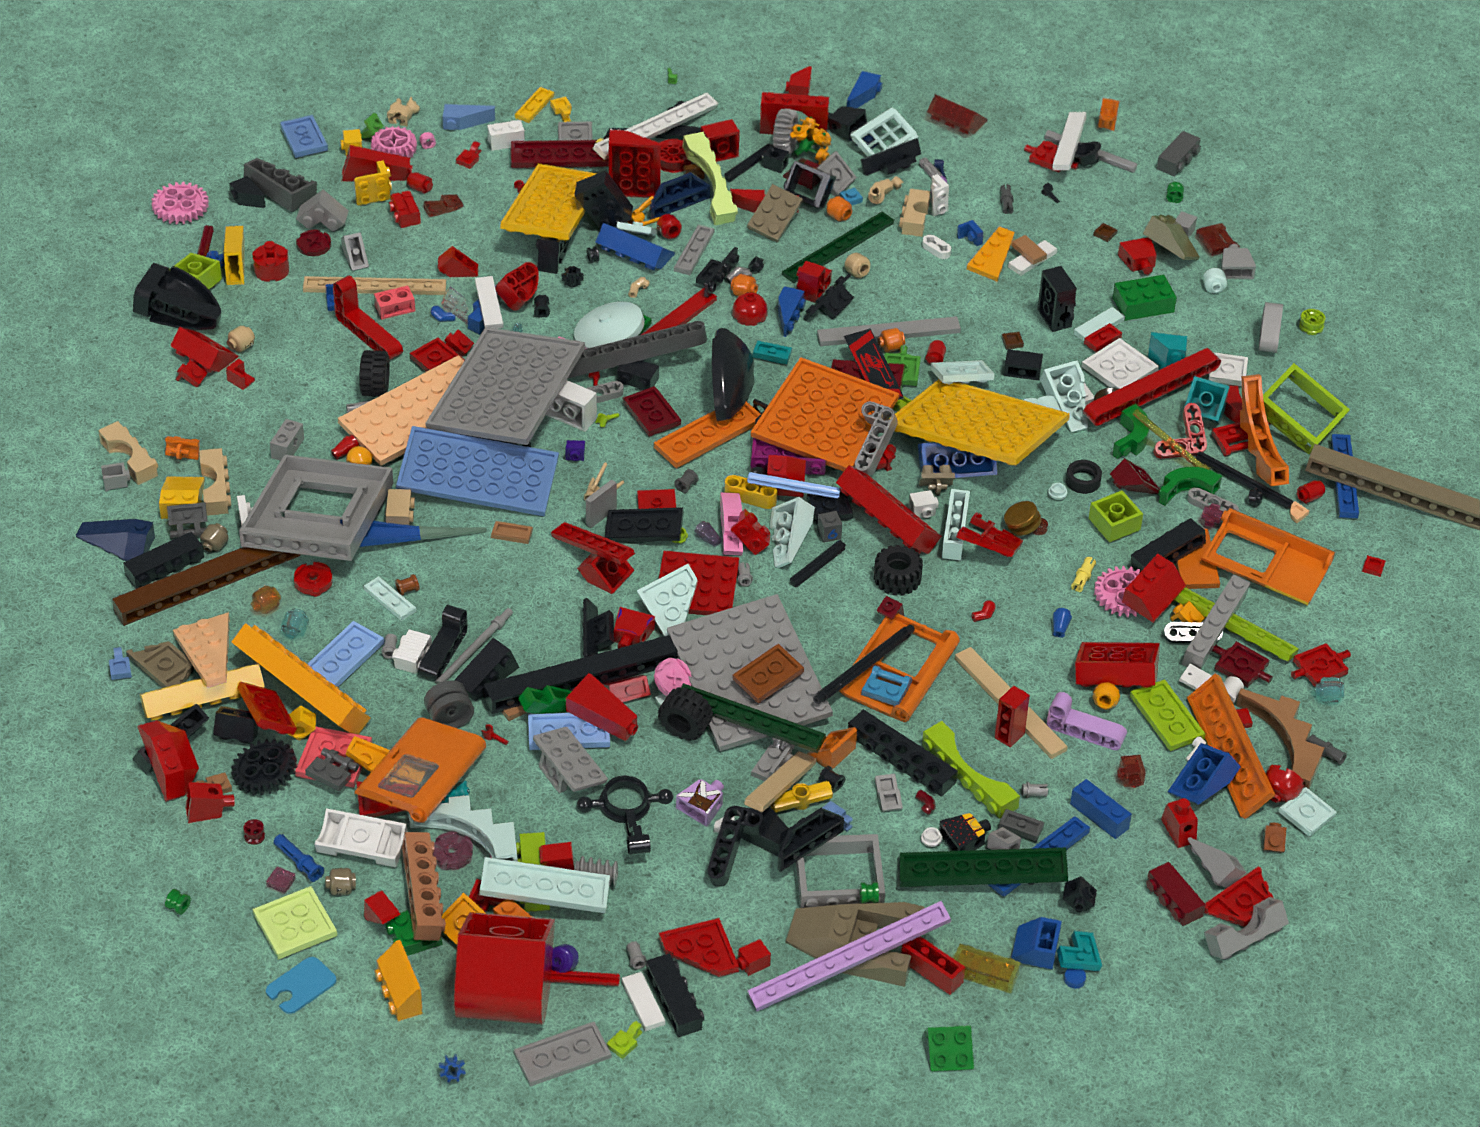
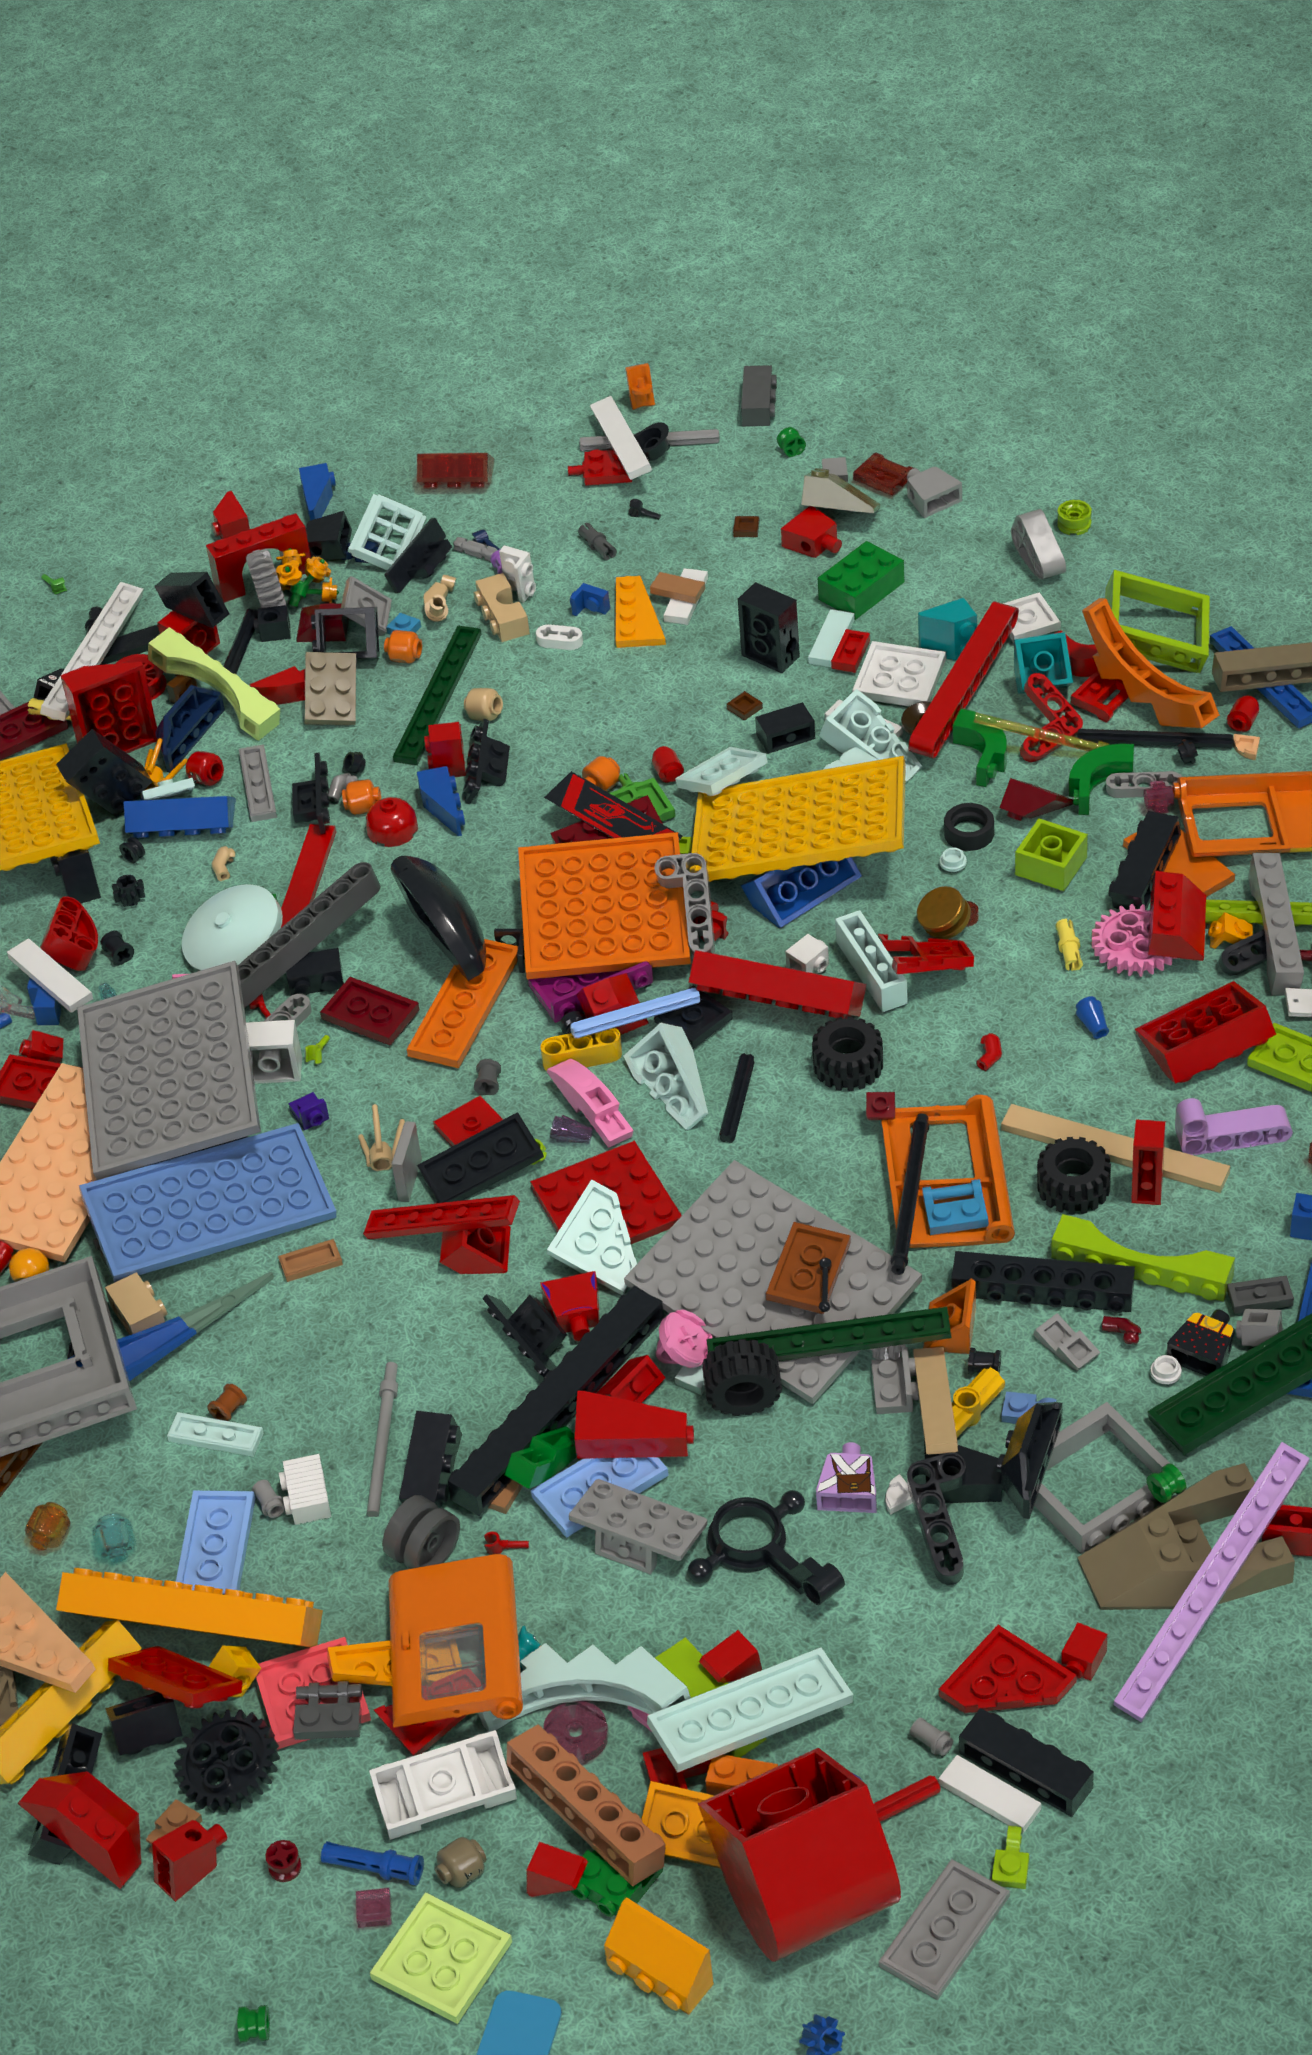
camera: 25 degrees left, 0 degrees up
(313, 587) = (93, 1476): red plate -> none
(445, 643) = (342, 1455): black beam -> none
(598, 868) = (791, 1646): light grey piece -> none
(728, 120) = (193, 596): none -> black slope
(744, 577) = (662, 1162): light grey pin -> none
(751, 532) = (629, 1100): red bracket -> none
(772, 352) = (464, 861): teal plate -> none
(776, 676) = (825, 1265): none -> black hinge
(829, 526) = (717, 1042): dark grey brick -> none
(911, 329) = (615, 747): light grey tile -> none
(936, 481) = (800, 920): dark tan hips -> none
(969, 715) = (1073, 1192): none -> black tyre
(1034, 790) = (1234, 1243): light grey pin -> none
(1106, 695) = (1225, 1076): light orange piece -> none
(1214, 280) = (924, 522): light aqua head -> none

